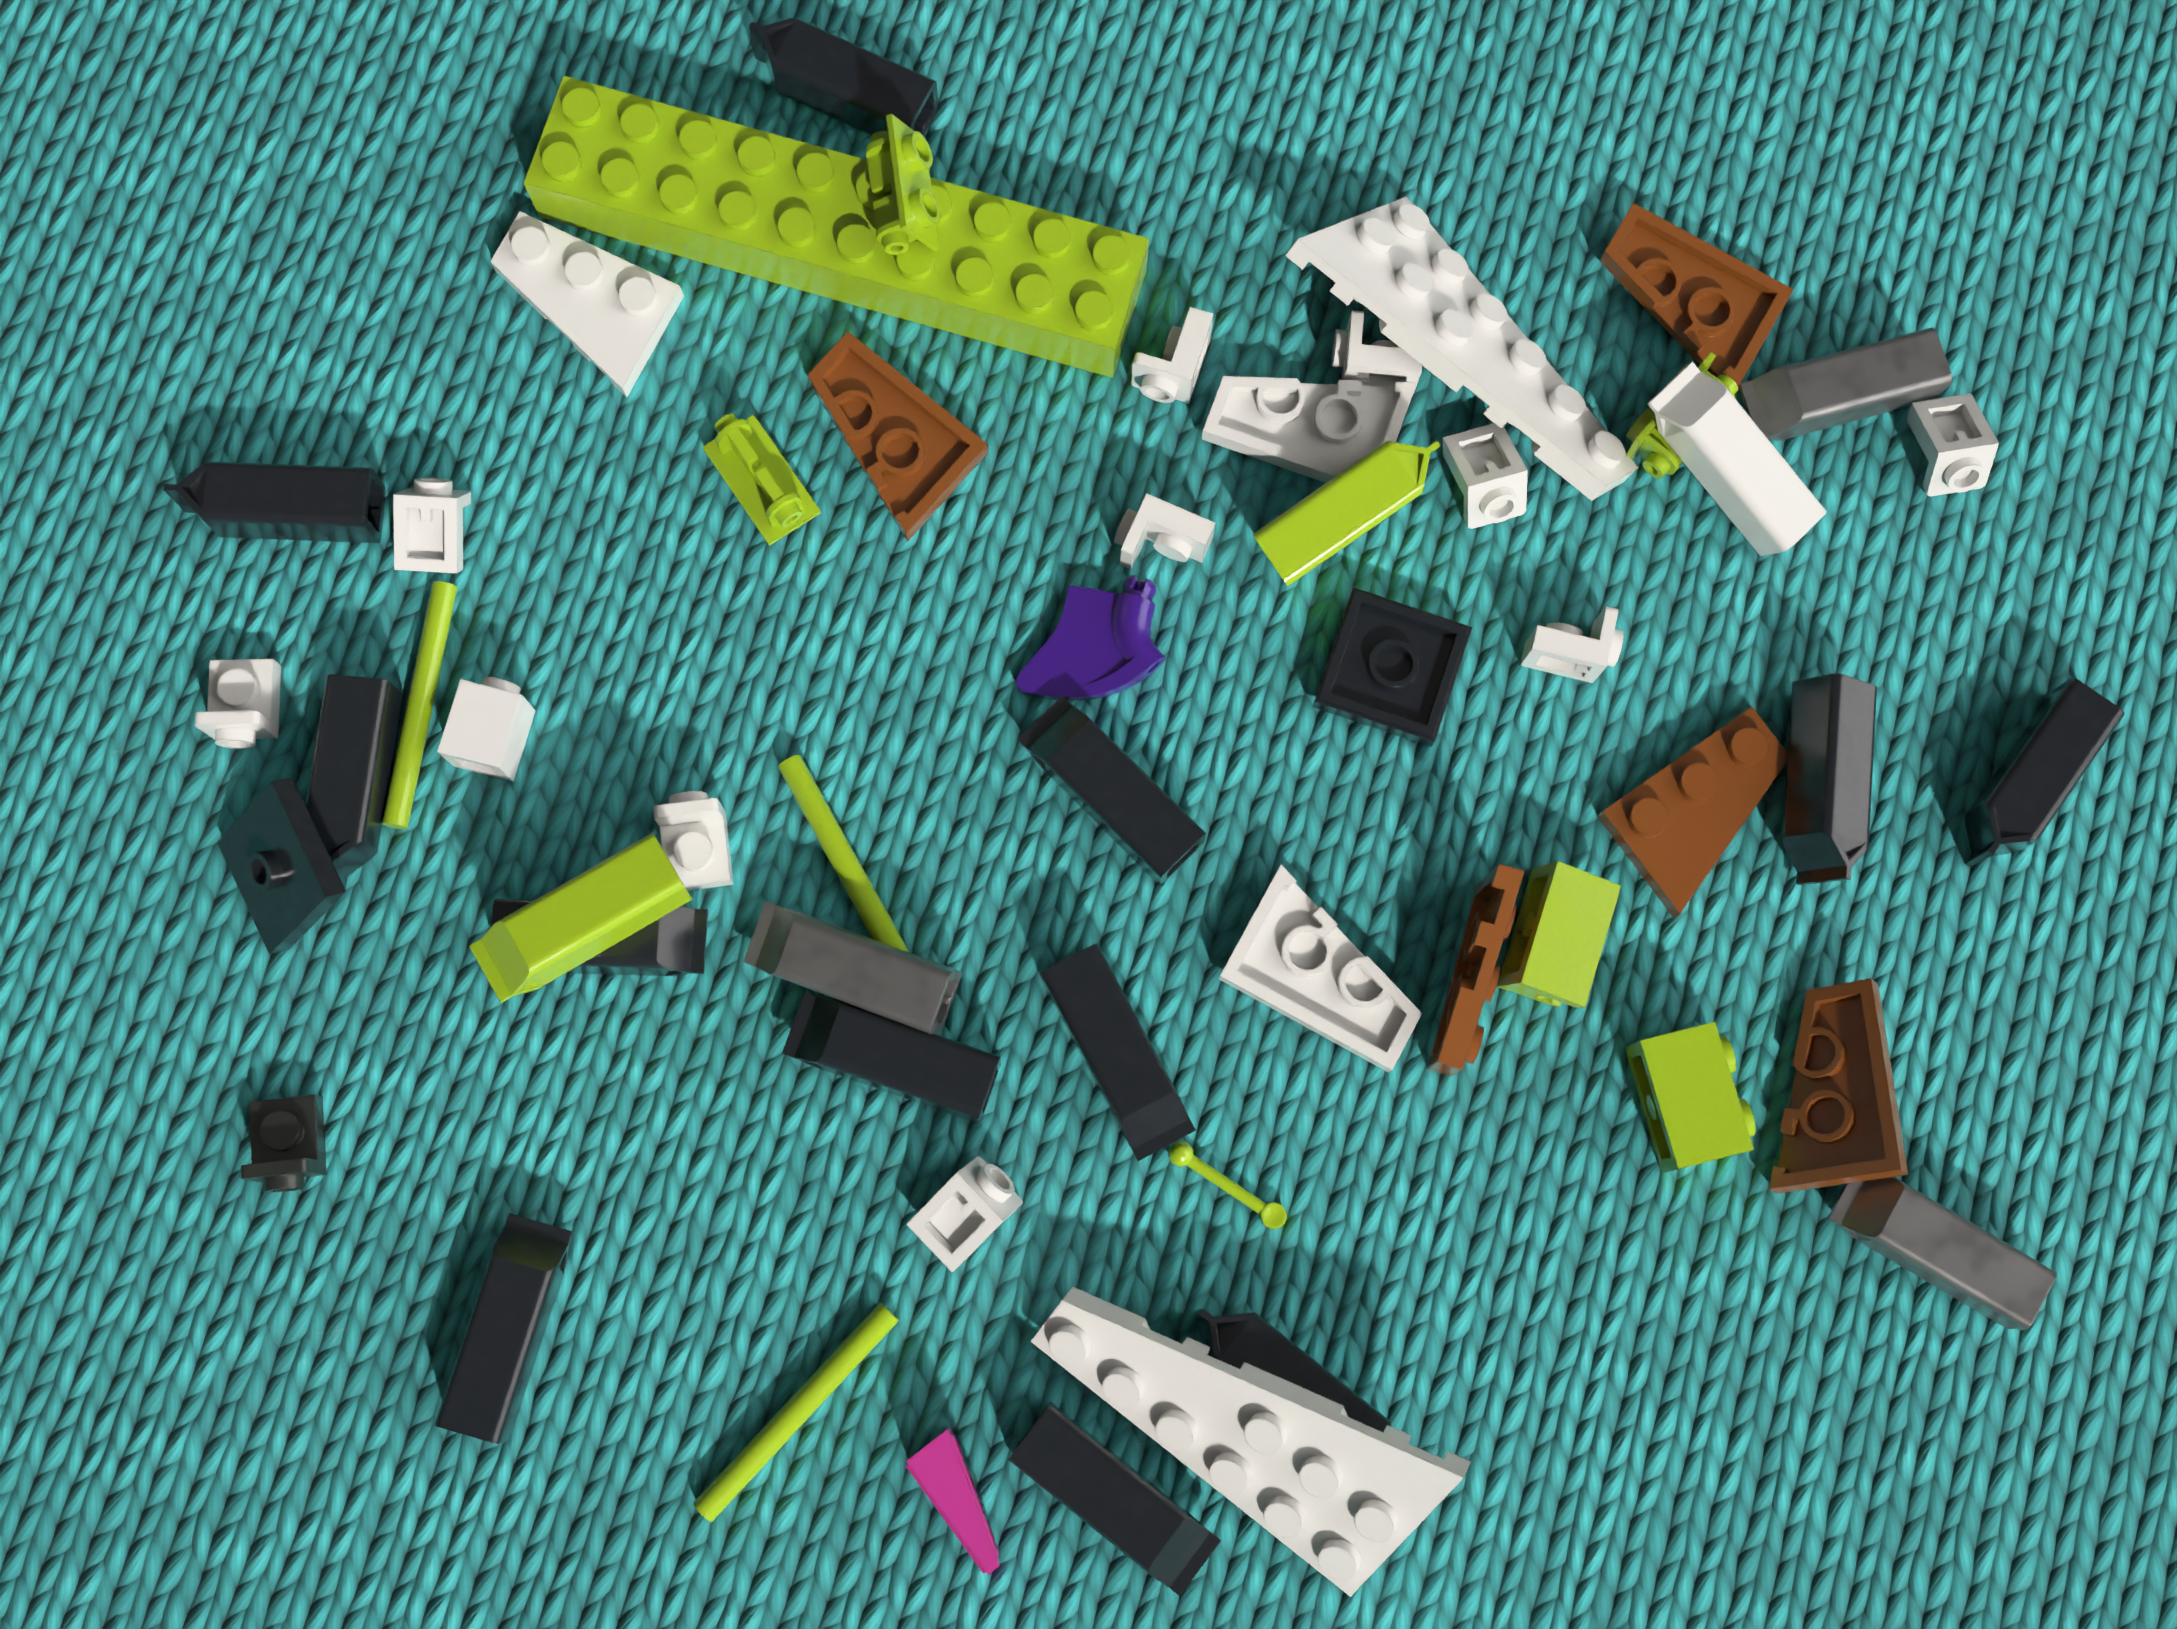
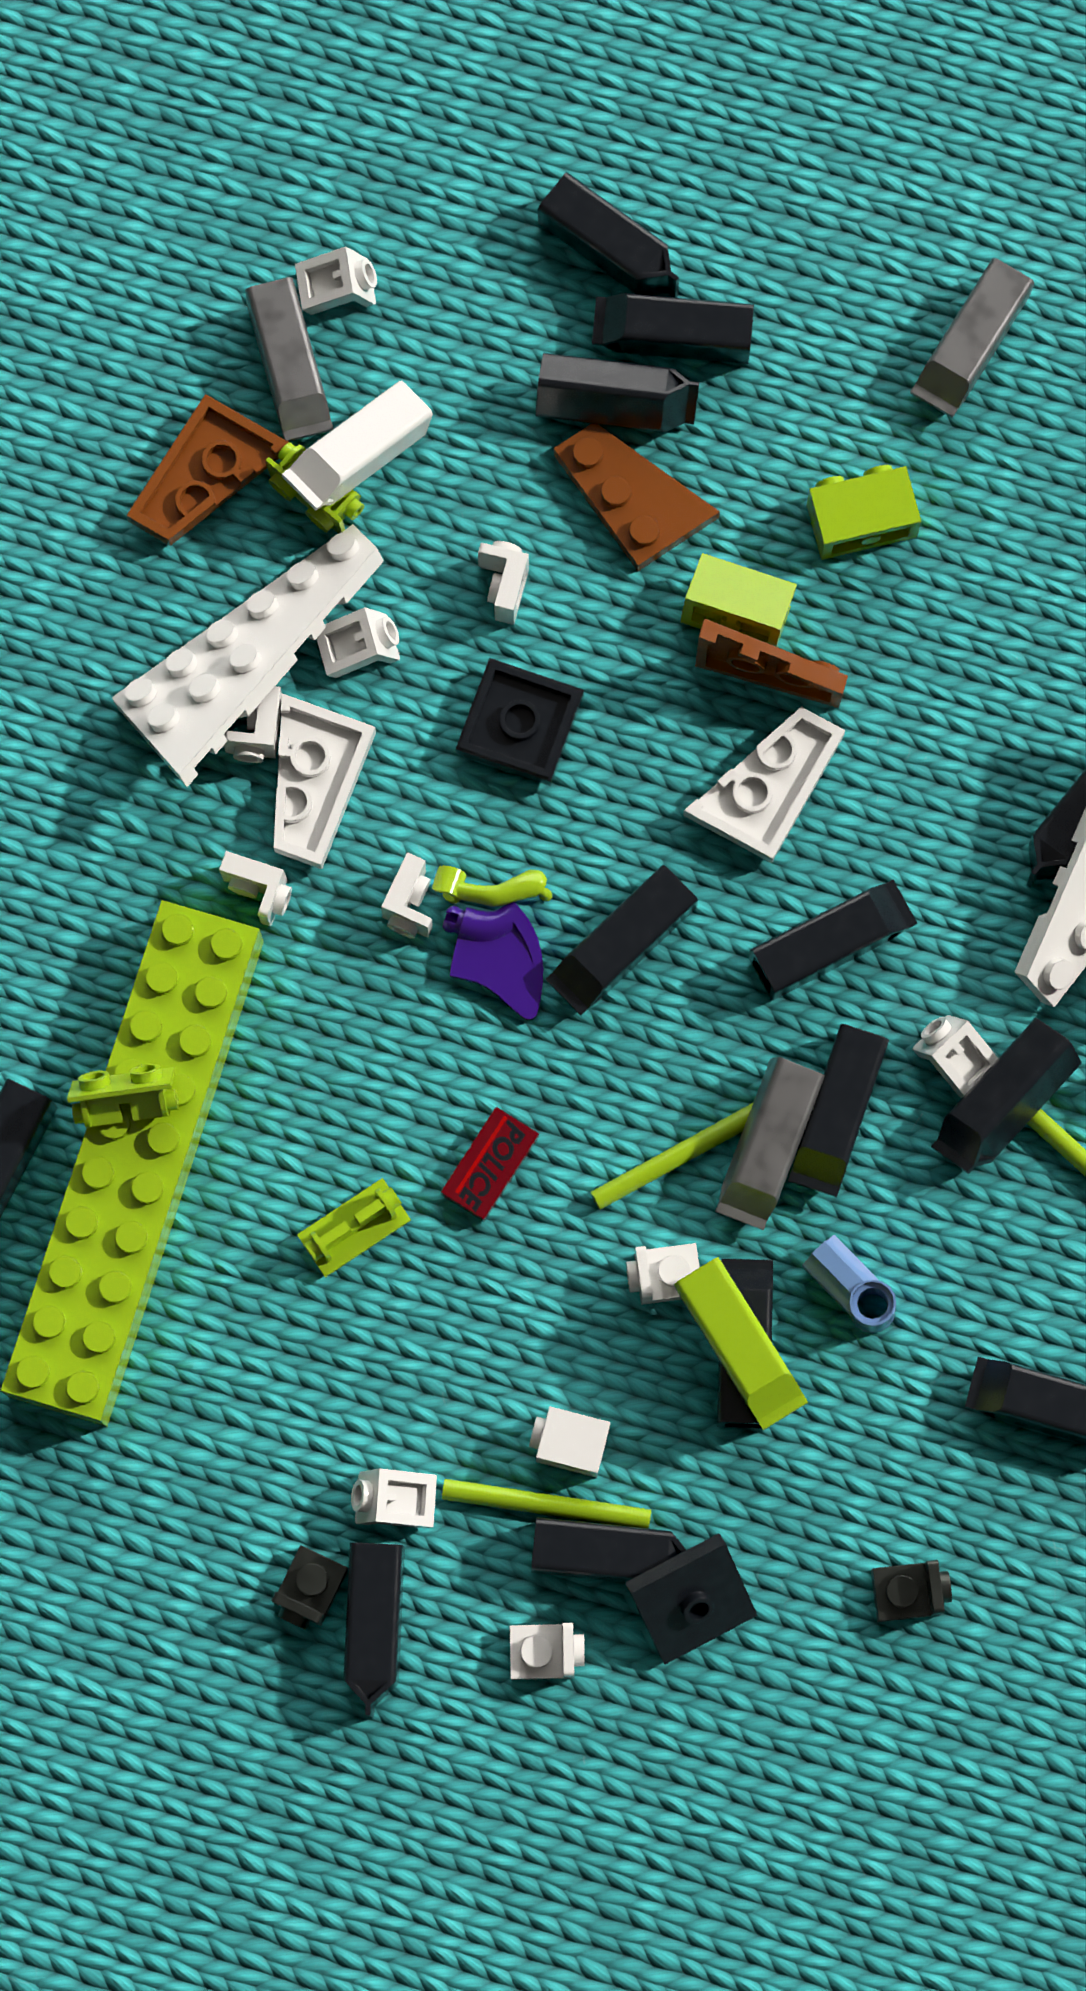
camera: 85 degrees left, 0 degrees up
(329, 429) = (309, 1588): none -> pearl dark grey bracket
(593, 297) = (186, 1375): white wing -> none
(674, 1066) = (848, 1282): none -> medium blue piece
(835, 636) = (490, 1164): none -> dark red tile
(895, 431) = (315, 1116): dark orange wing -> none
(905, 1272) = (1006, 1097): none -> black piece
(1178, 667) = (526, 885): none -> lime piece
(1271, 1215) = (953, 827): lime hinge -> none
(1344, 508) = (393, 749): lime piece -> none
(1843, 1095) = (859, 400): dark orange wing -> none
(1924, 858) = (674, 327): none -> black piece

